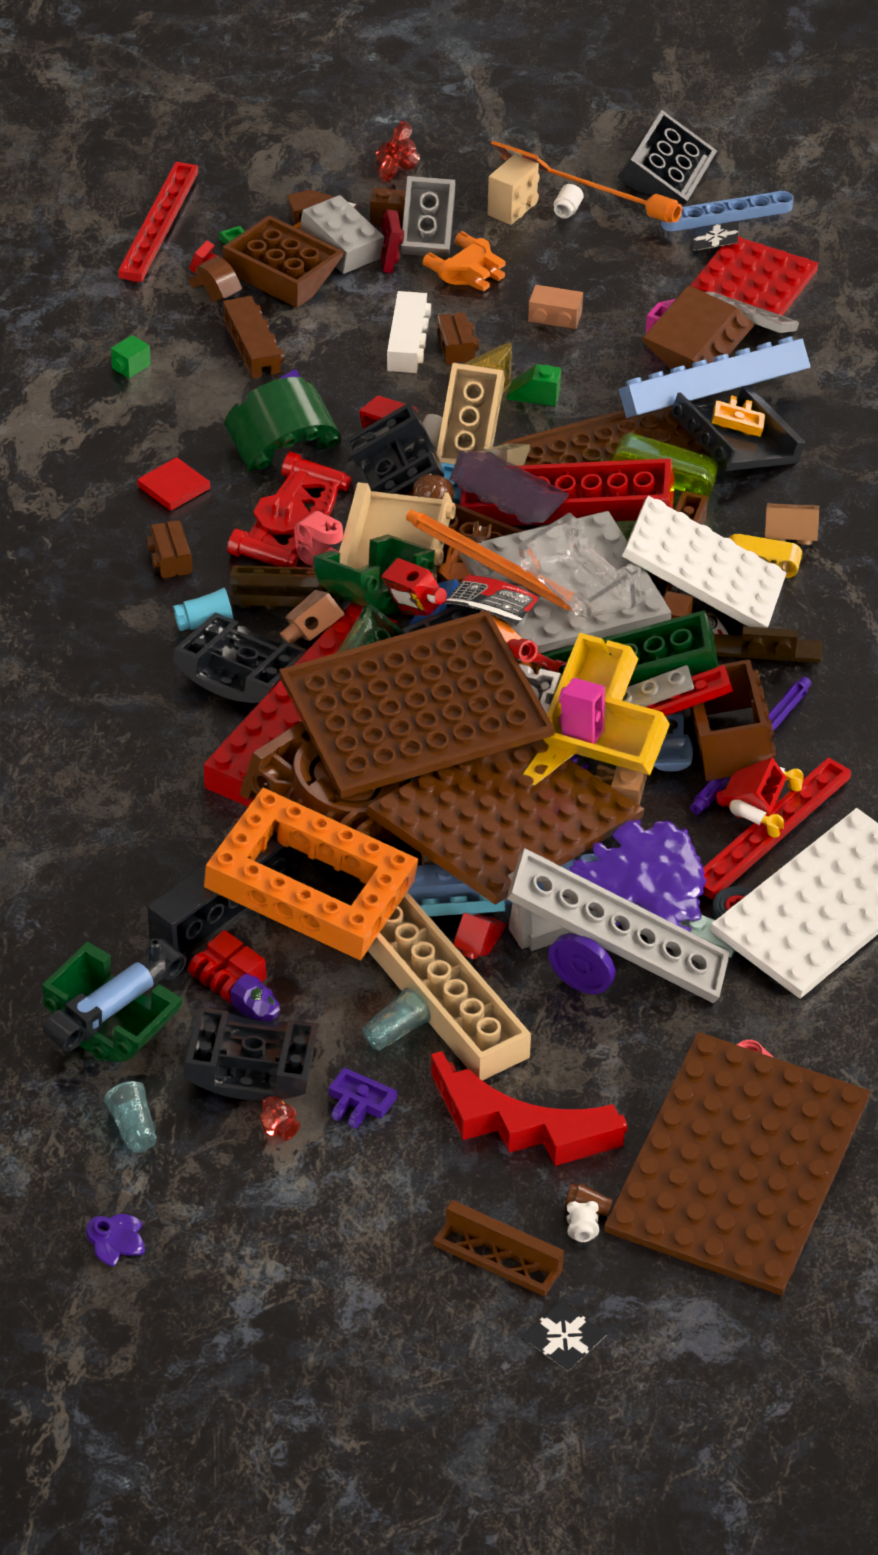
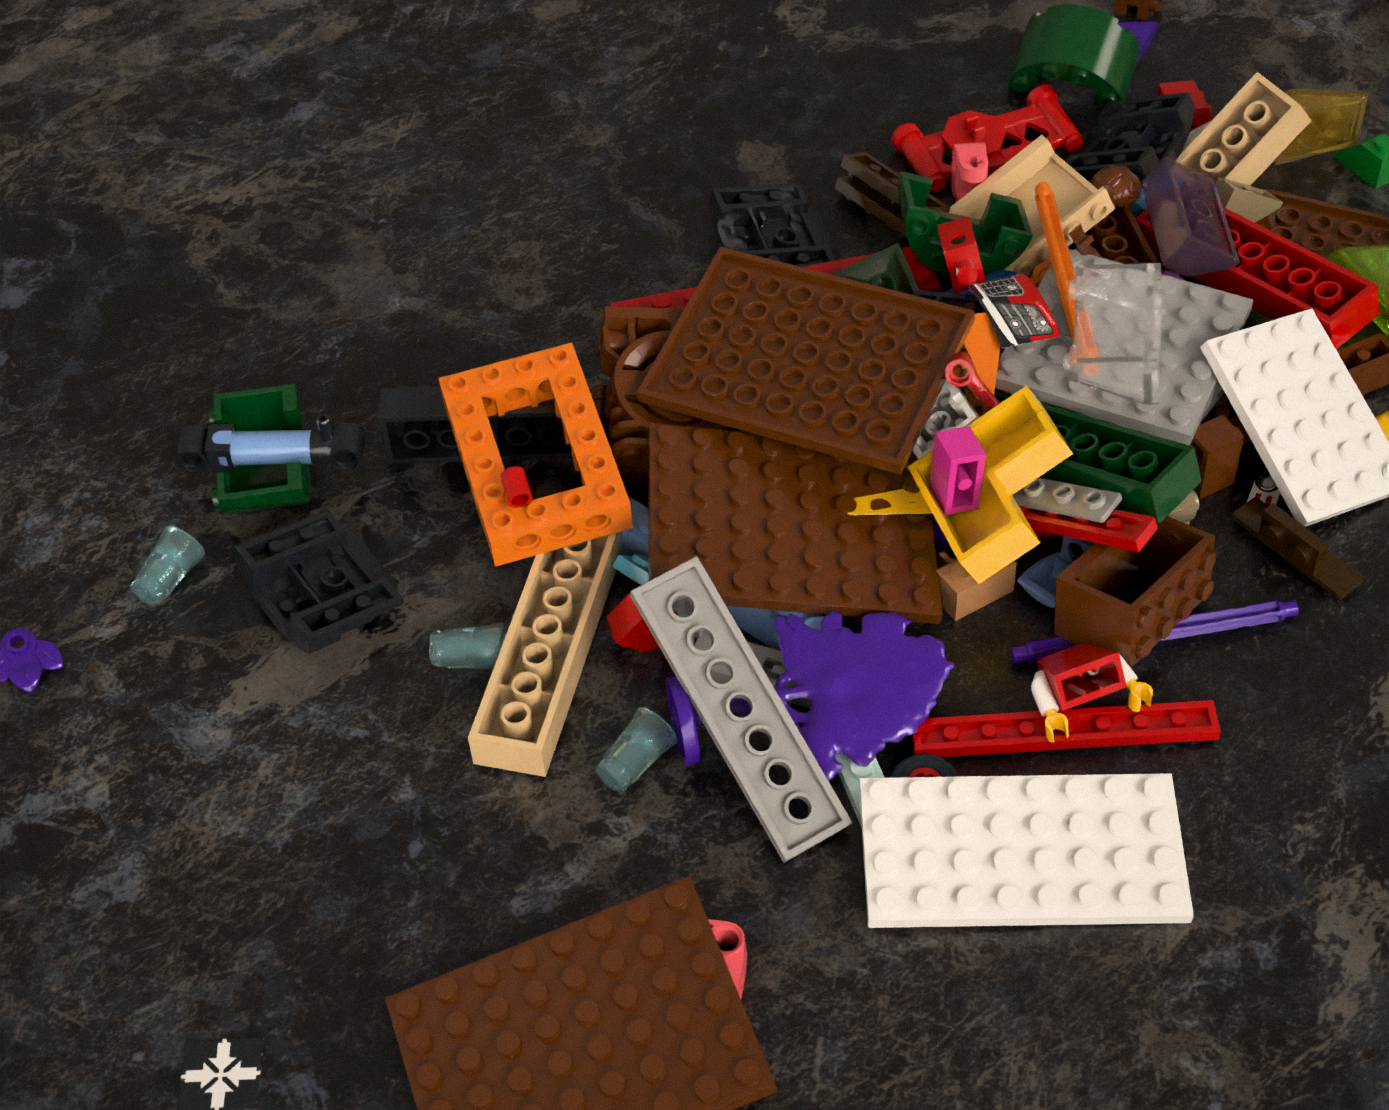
camera: 50 degrees right, 5 degrees up
(169, 549) = (844, 111): reddish brown brick -> none
(173, 483) = (925, 61): red tile -> none
(196, 611) = (815, 179): medium azure plant -> none
(225, 963) = (410, 495): red legs -> none
(254, 999) = (395, 539): dark purple rock -> none
(279, 1119) = (270, 661): clear red animal -> none
(320, 613) = (871, 236): nougat torso -> none
(346, 892) = (516, 487): none -> red hinge
(361, 1093) = (361, 694): dark purple hinge -> none
(408, 332) = (1304, 42): white brick -> none
(456, 337) = (1347, 69): reddish brown brick -> none
(504, 1244) = (282, 934): reddish brown fence -> none
(564, 1132) = (465, 874): red arch -> none
(566, 1001) = (635, 749): none -> clear light blue plant
(582, 1221) = (368, 977): white brick -> none
(583, 1194) = (400, 957): reddish brown cone -> none

